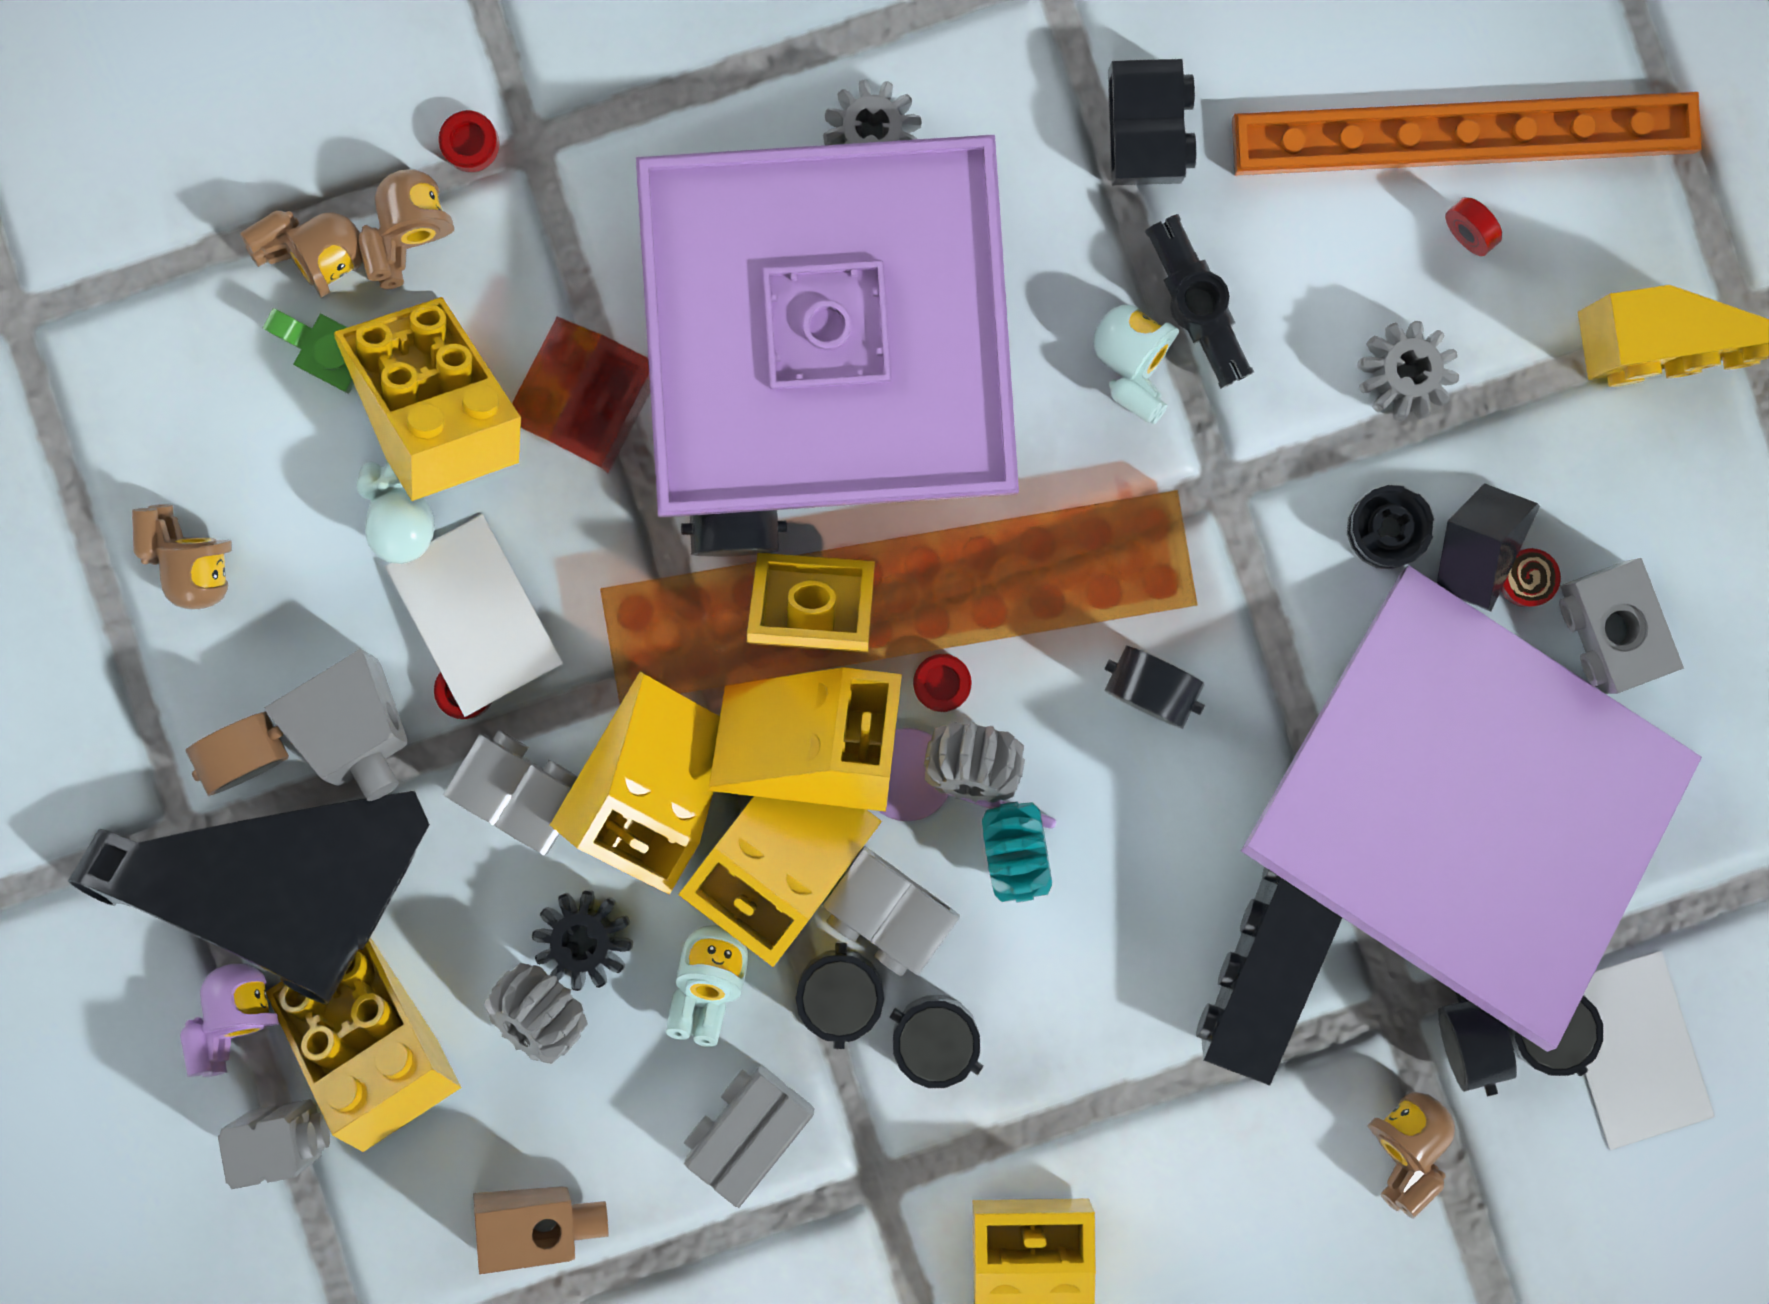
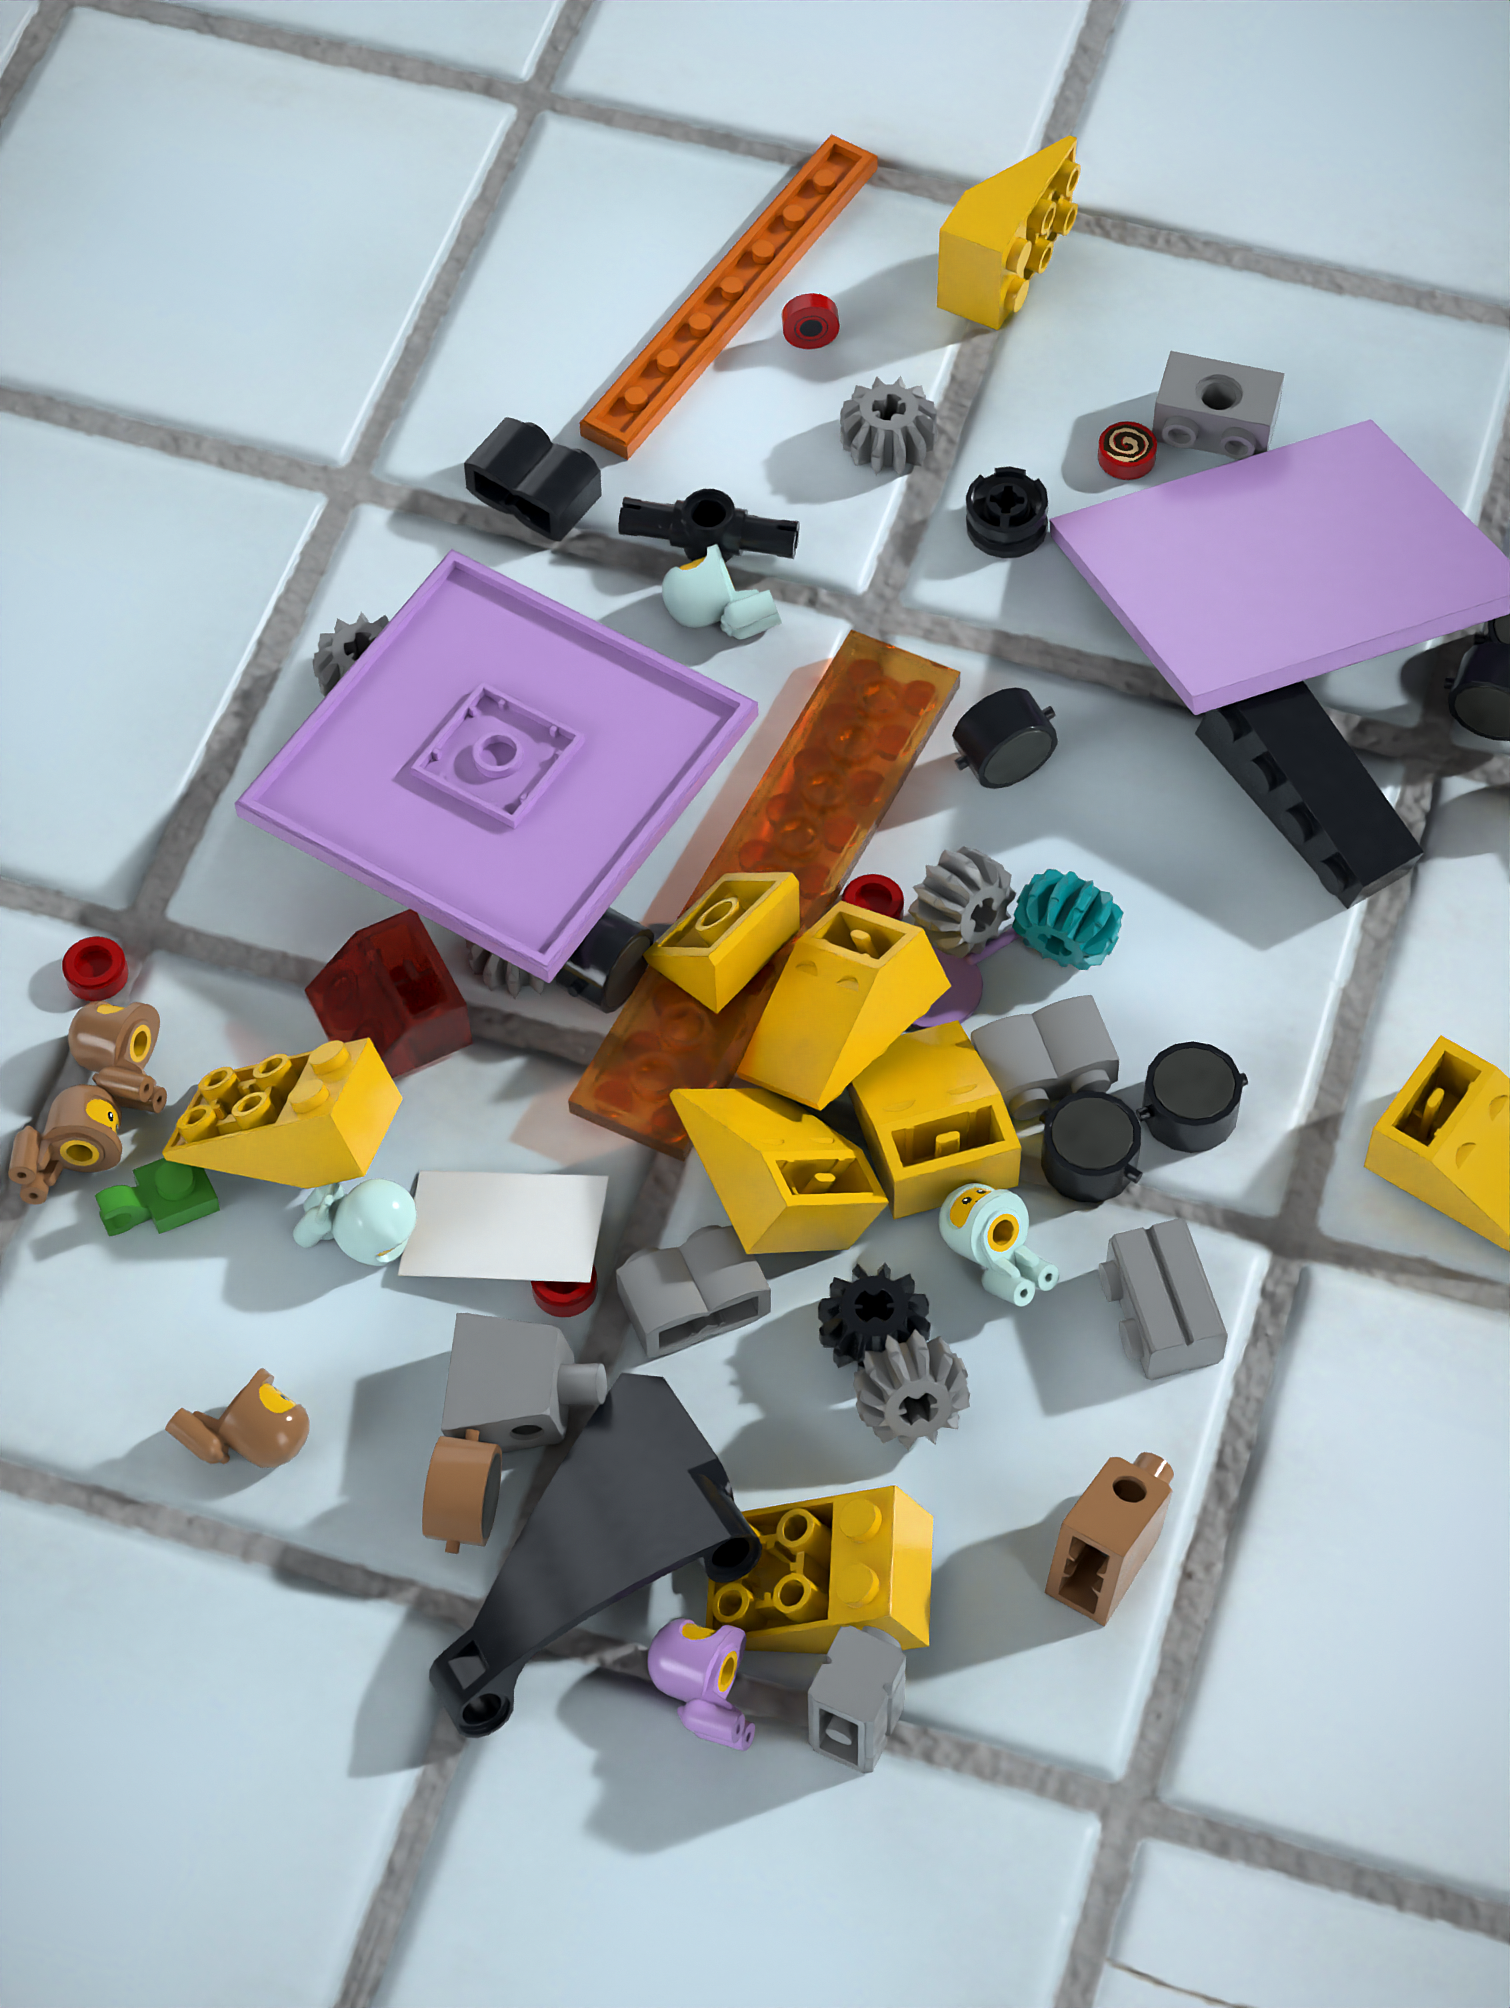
camera: 50 degrees left, 30 degrees down
(1483, 544) = (1077, 458): black slope -> none

